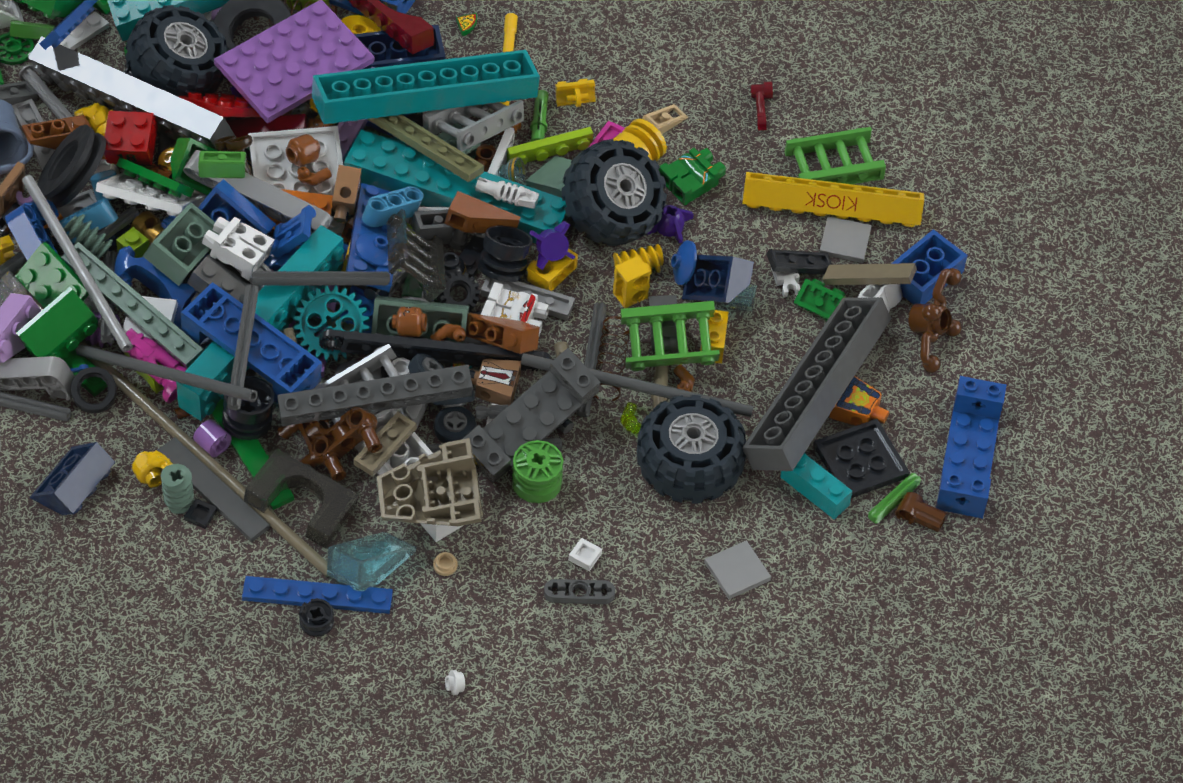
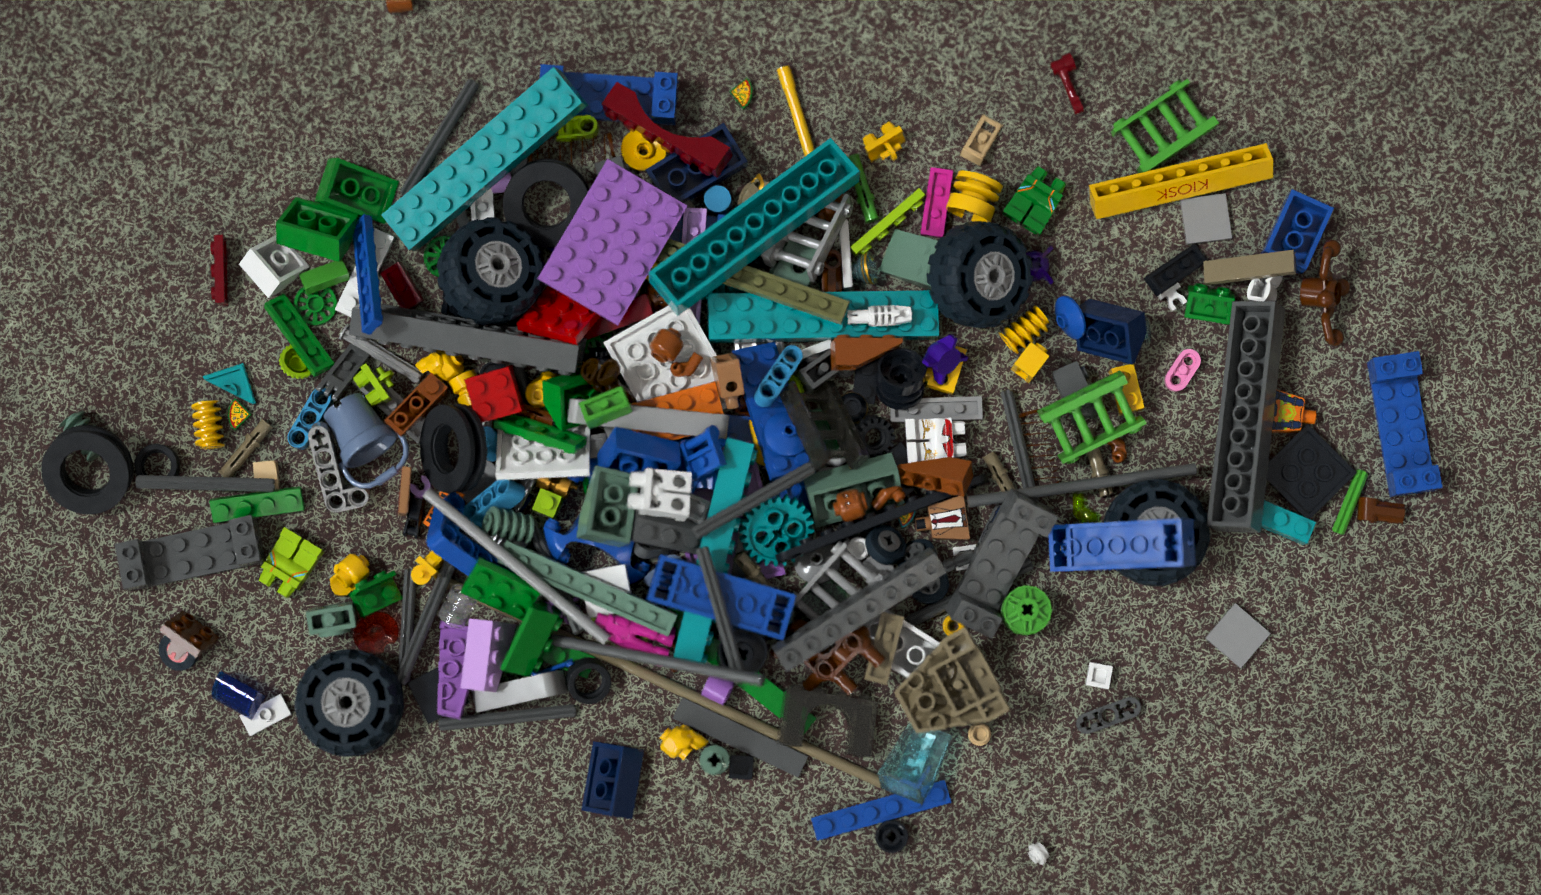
camera: 15 degrees left, 30 degrees up
(38, 106) = (367, 376): none -> lime hips
(95, 49) = (402, 286): none -> dark red plate
(690, 426) = (1122, 545): none -> plate
(772, 342) = (1181, 370): none -> bright pink plate

